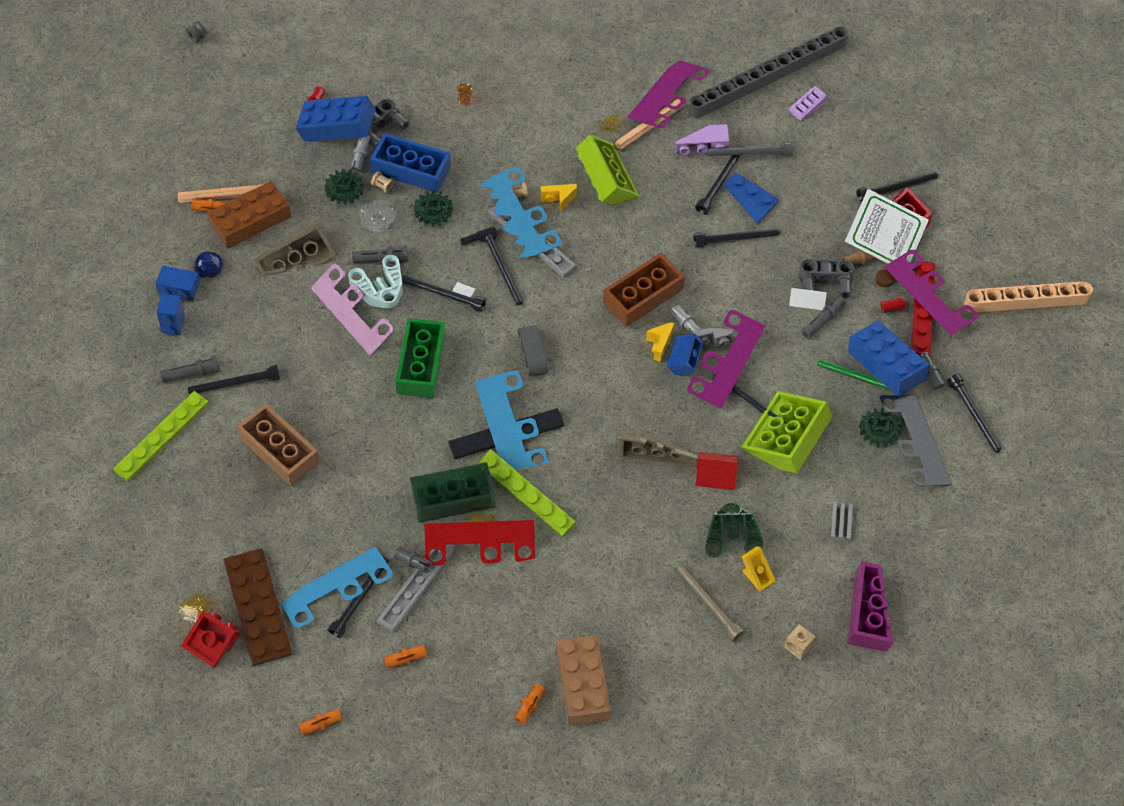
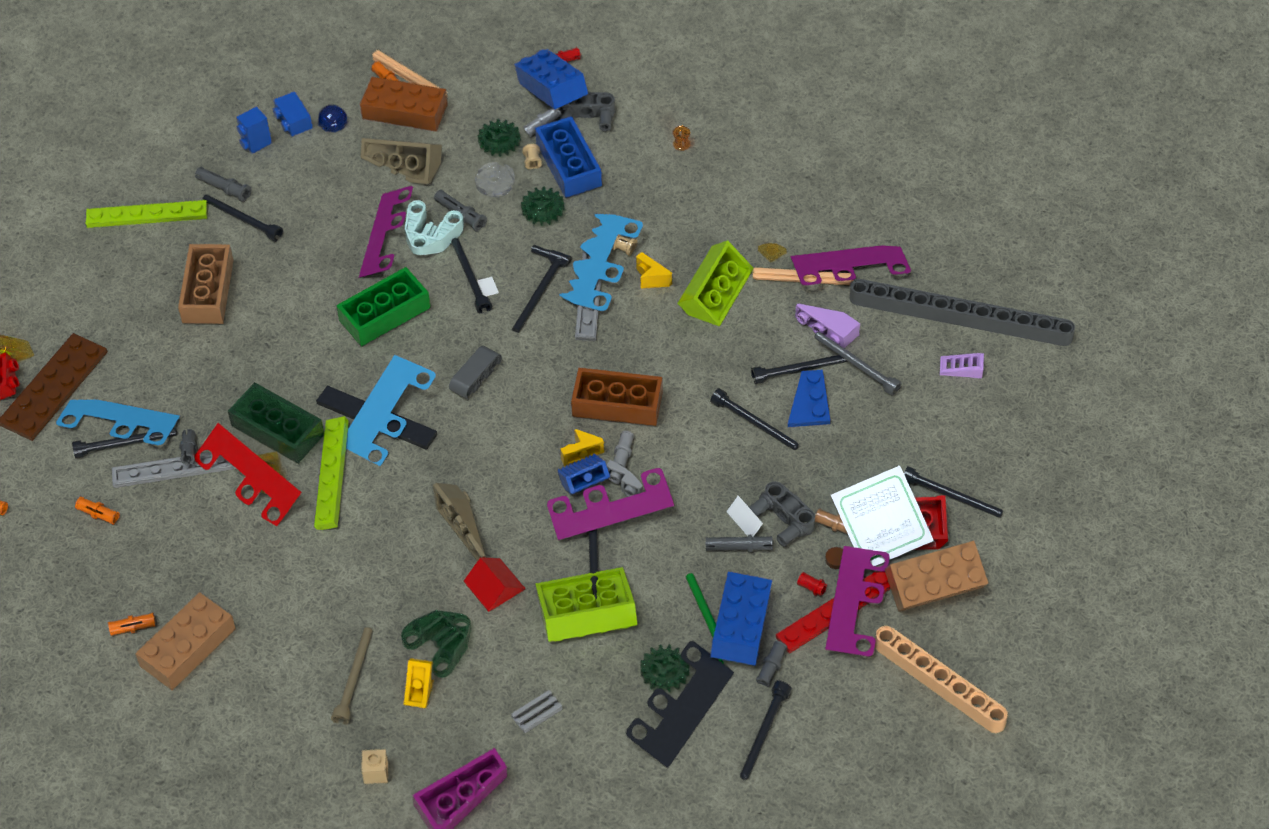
camera: 50 degrees right, 5 degrees down
(957, 239) = (936, 576): none -> medium nougat brick

